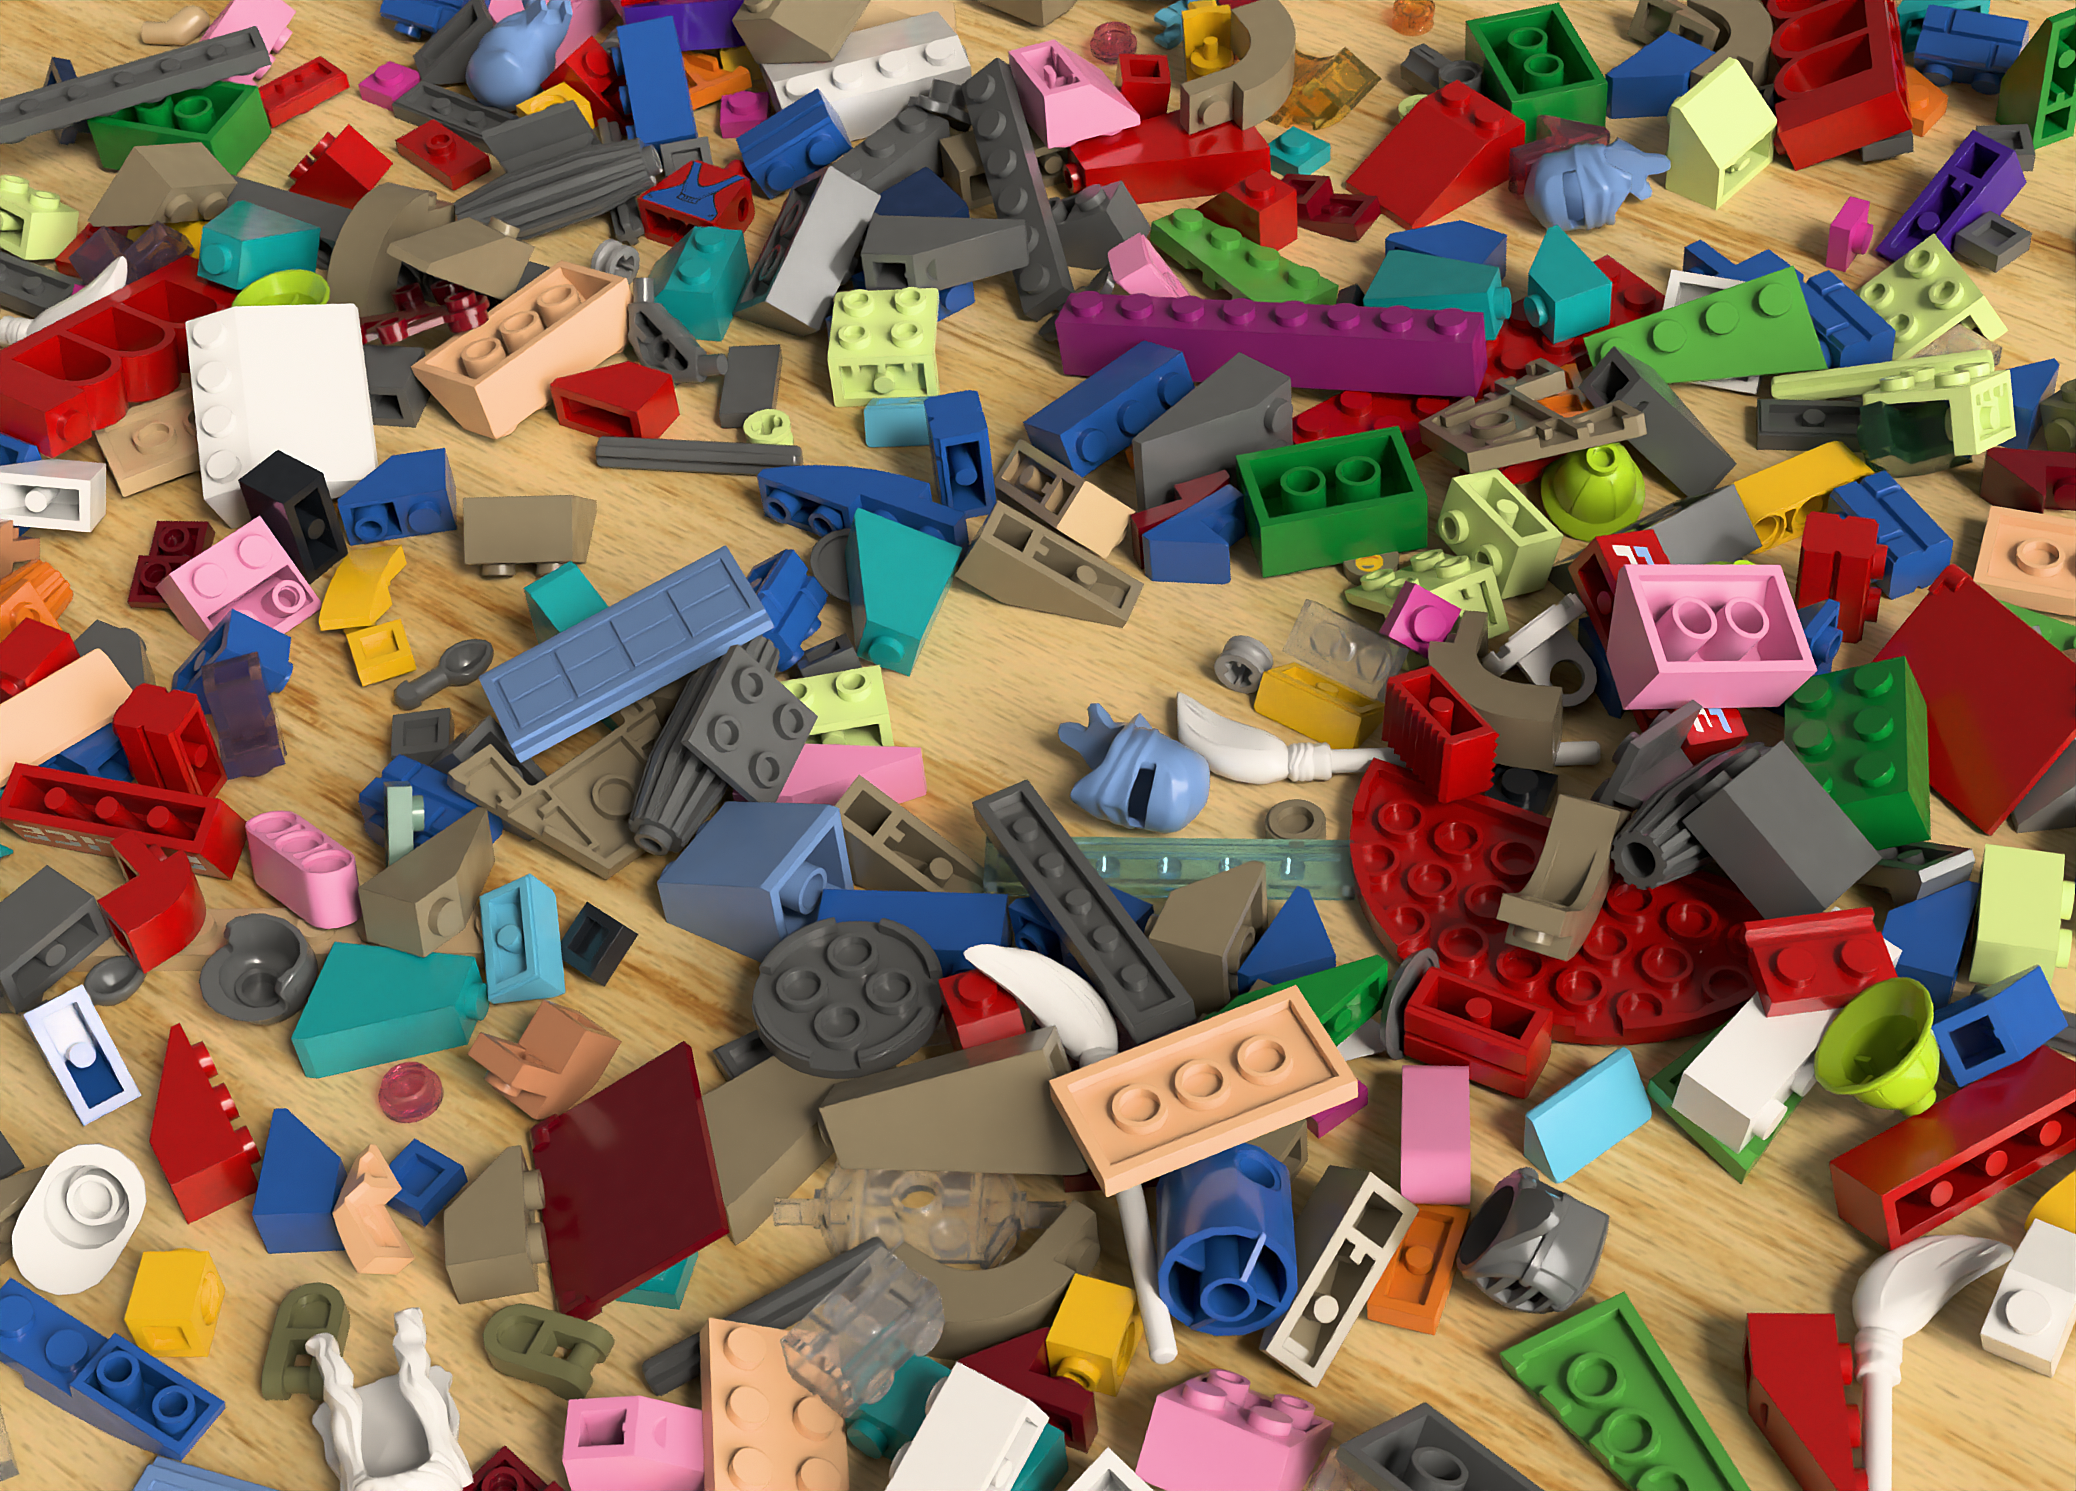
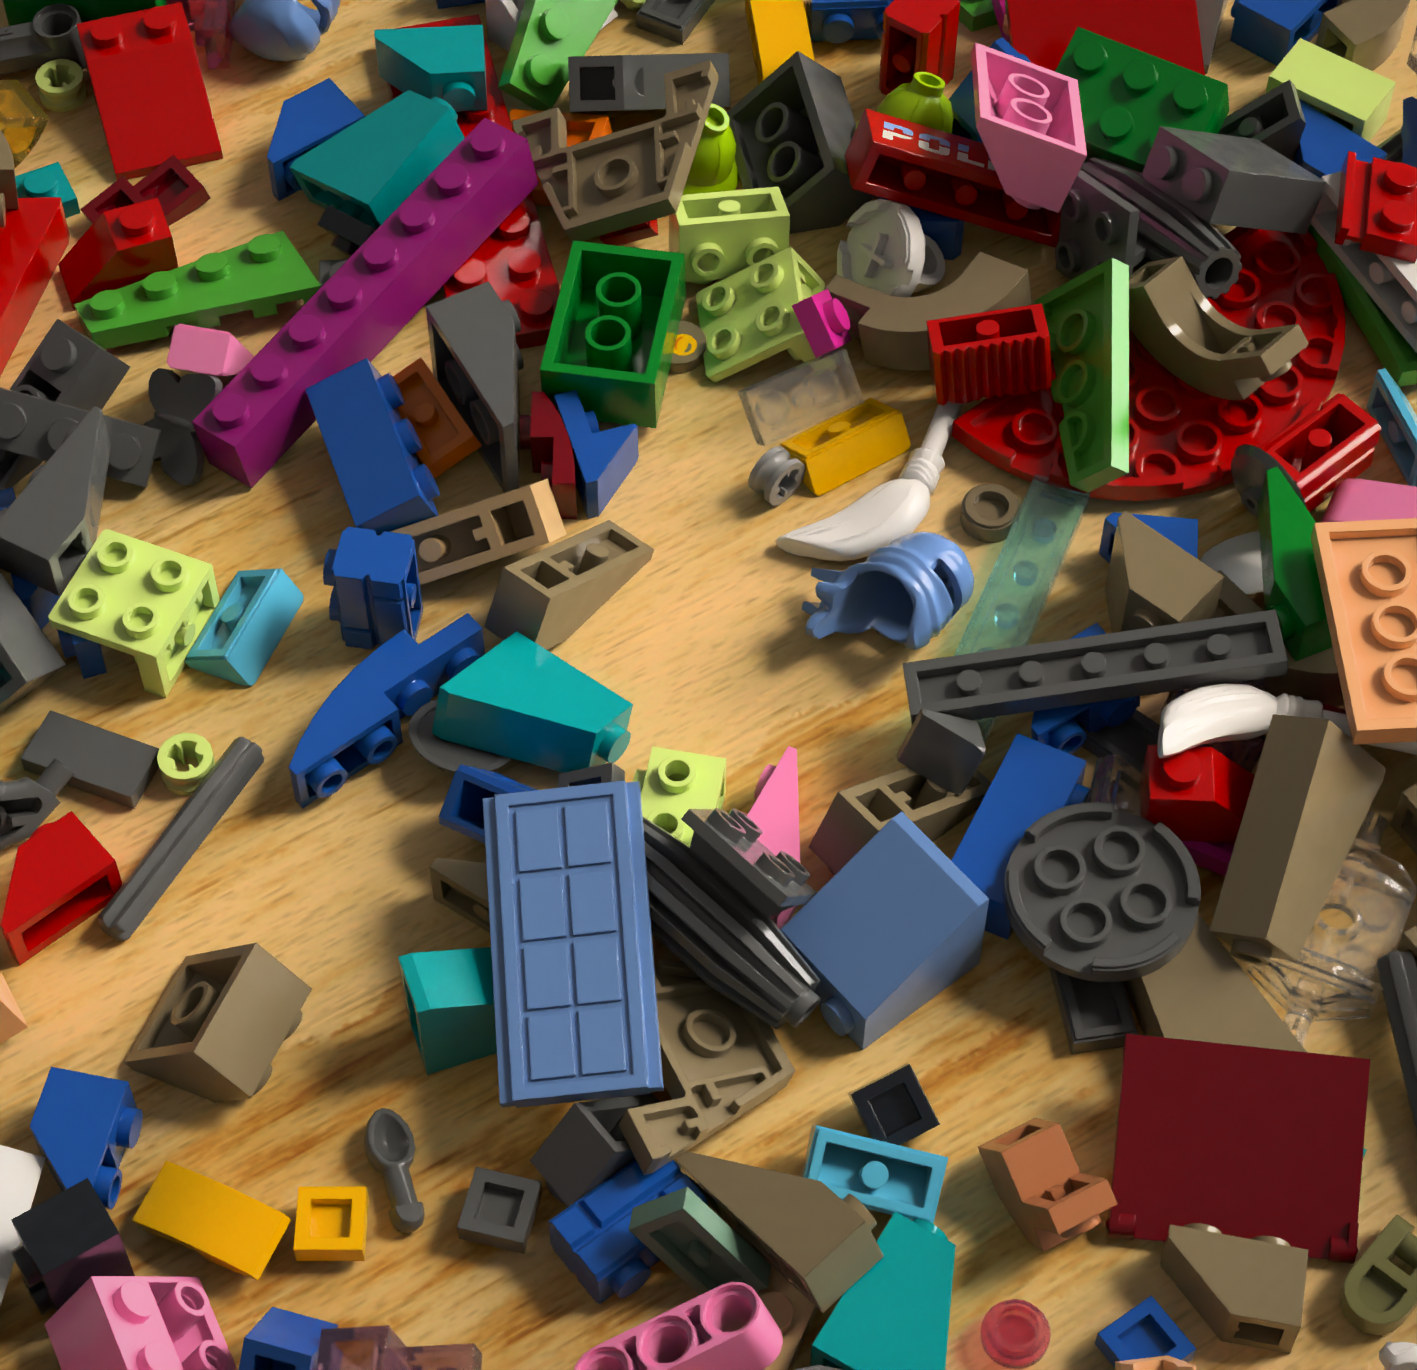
camera: 75 degrees left, 10 degrees up
(964, 847) = (943, 749): none -> dark grey slope
(1481, 808) = (1092, 371): none -> bright green wing

